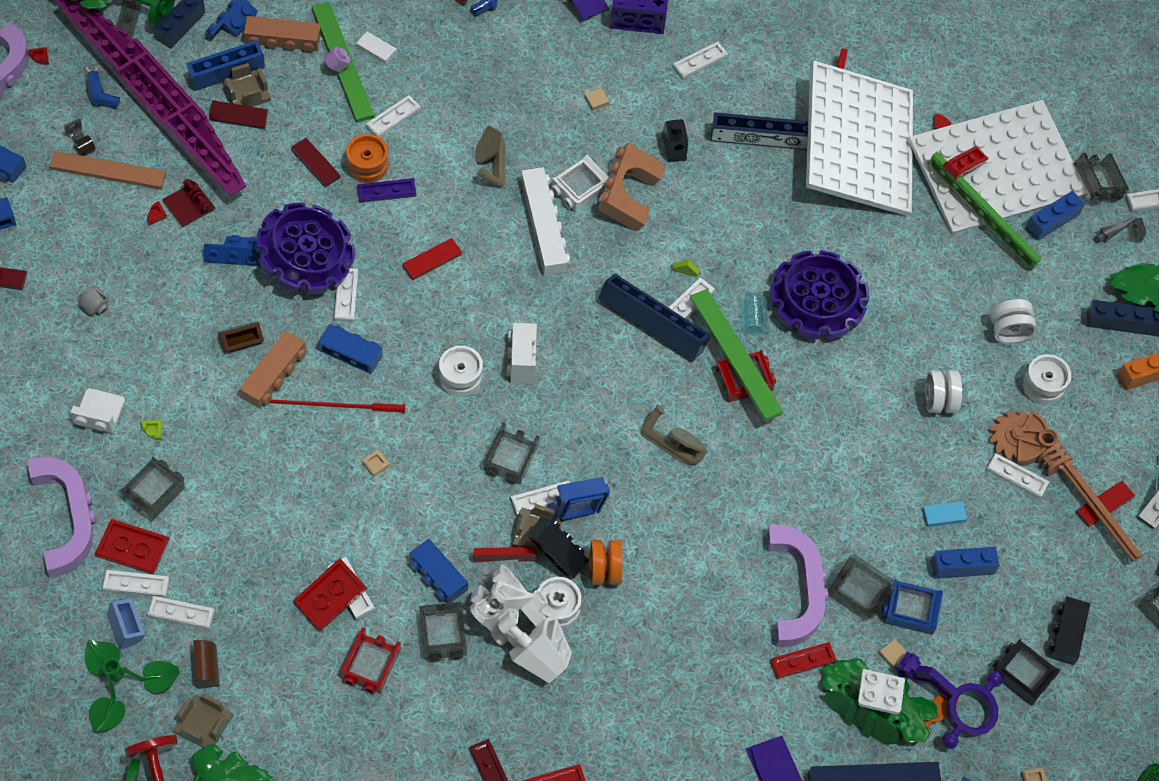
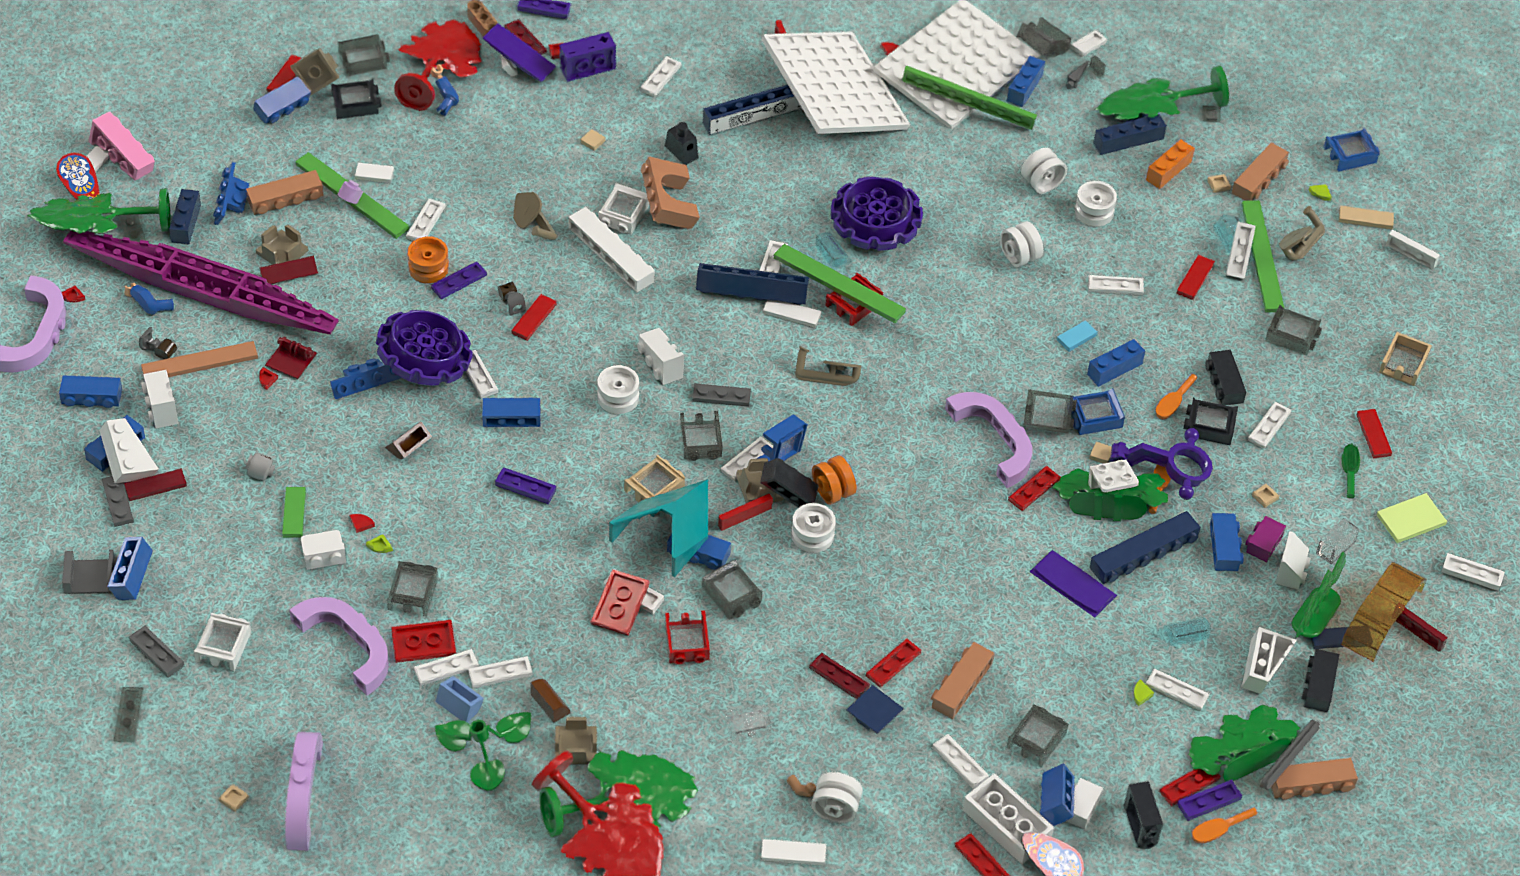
camera: 25 degrees left, 10 degrees down
(47, 193) = (159, 399): none -> white wedge
(97, 360) = (294, 512): none -> bright green tile
(150, 398) = (361, 522): none -> red tile
(218, 66) = (248, 237): blue brick -> none
(273, 369) = (455, 455): nougat brick -> none
(315, 162) = (381, 283): dark red tile -> none
(318, 430) = (525, 485): none -> dark purple plate
(375, 406) = (560, 449): red piece -> none
(375, 463) = (590, 490): tan tile -> none
(421, 230) = (509, 292): none -> dark grey leg
(438, 484) = (654, 479): none -> tan window
(440, 535) = (689, 519): none -> teal windscreen
(485, 571) = (750, 528): clear brick -> none
(546, 648) = (823, 565): white piece -> none
(558, 419) = (721, 395): none -> dark grey plate
(679, 363) = (792, 312): none -> white tile
(686, 267) = (753, 238): lime tile -> none
(965, 162) = (933, 65): red tile -> none
(1001, 629) = (1172, 401): none -> orange piece
(1023, 440) = (1112, 253): nougat piece -> none
(1085, 703) = (1269, 425): none -> white tile

